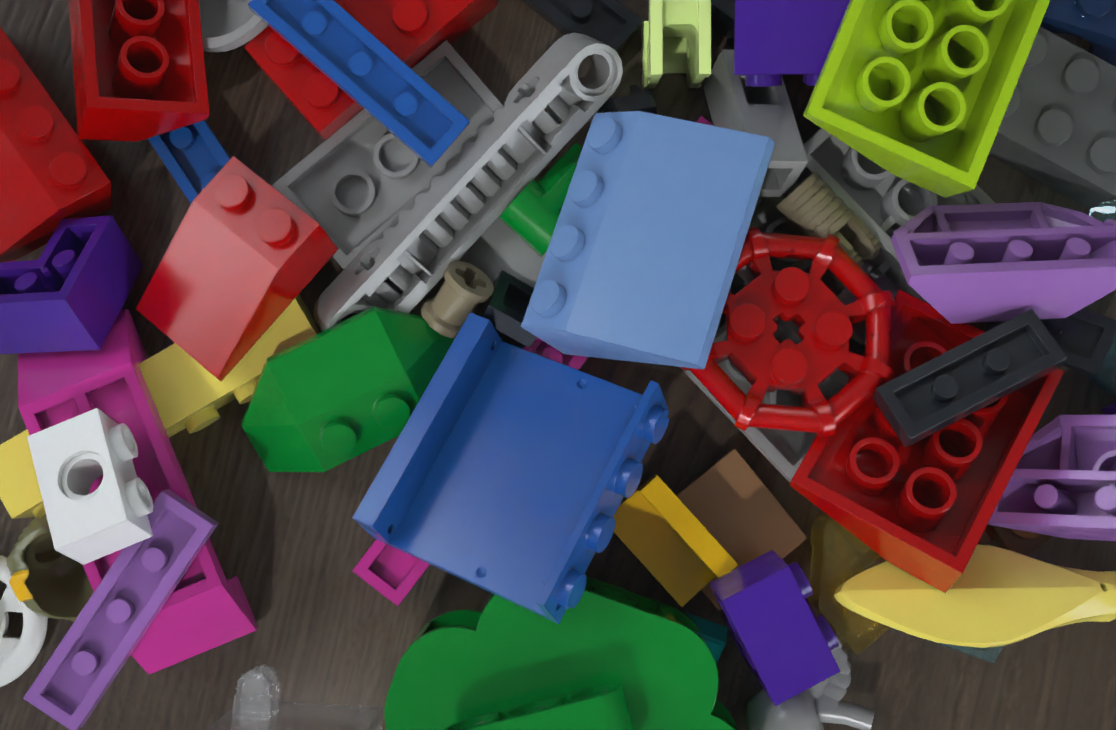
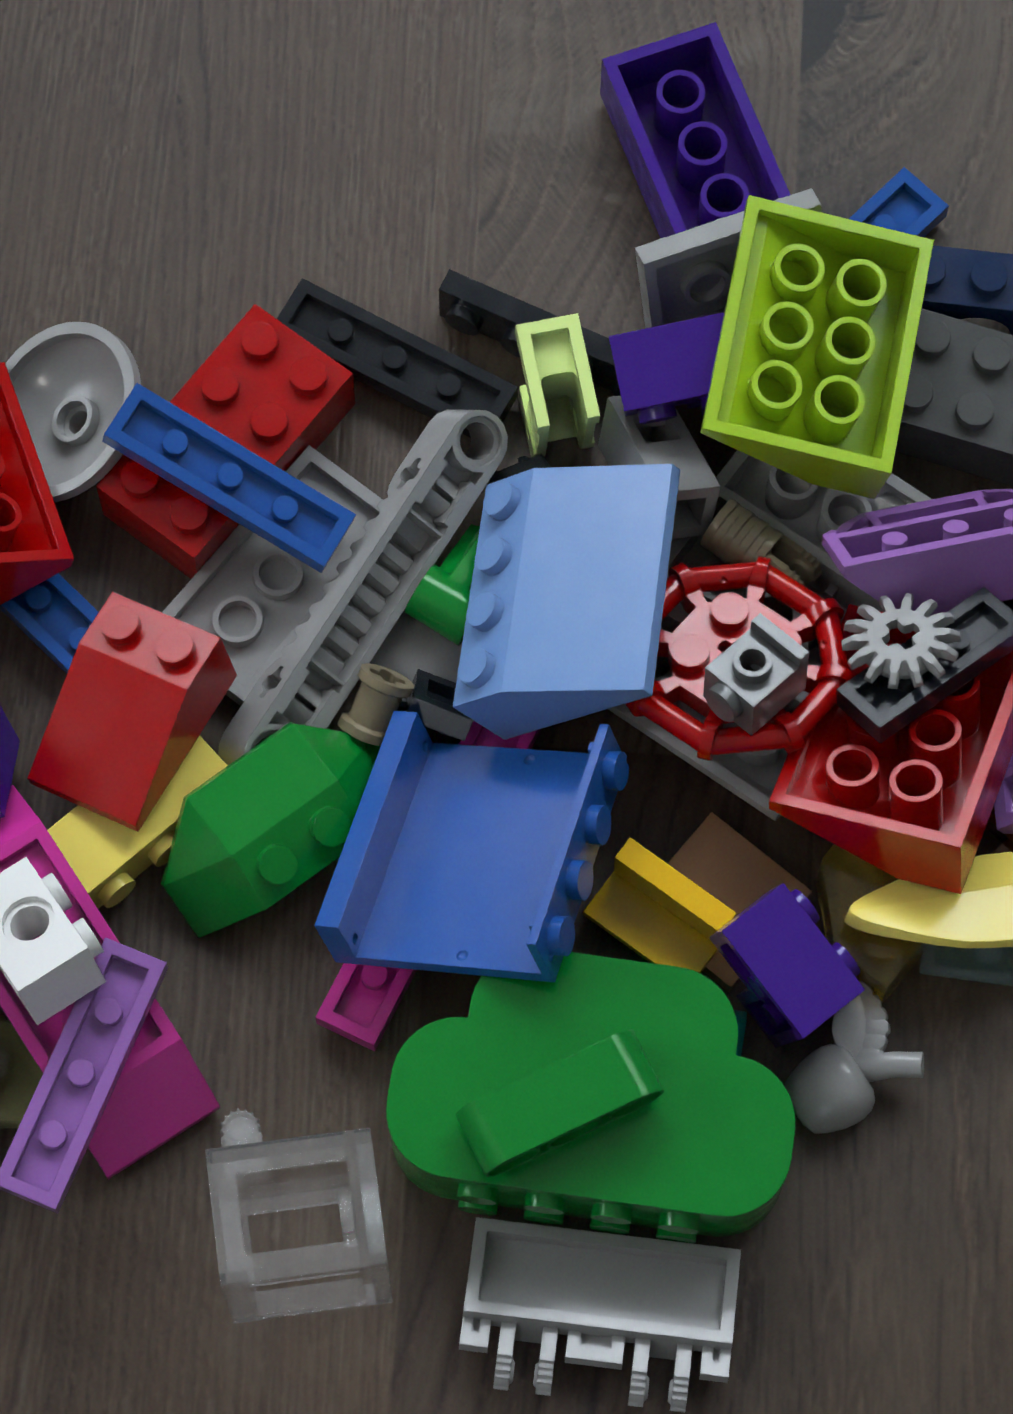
camera: 10 degrees left, 15 degrees down
(824, 354) = (756, 676): none -> dark grey brick
(938, 373) = (894, 660): none -> light grey gear

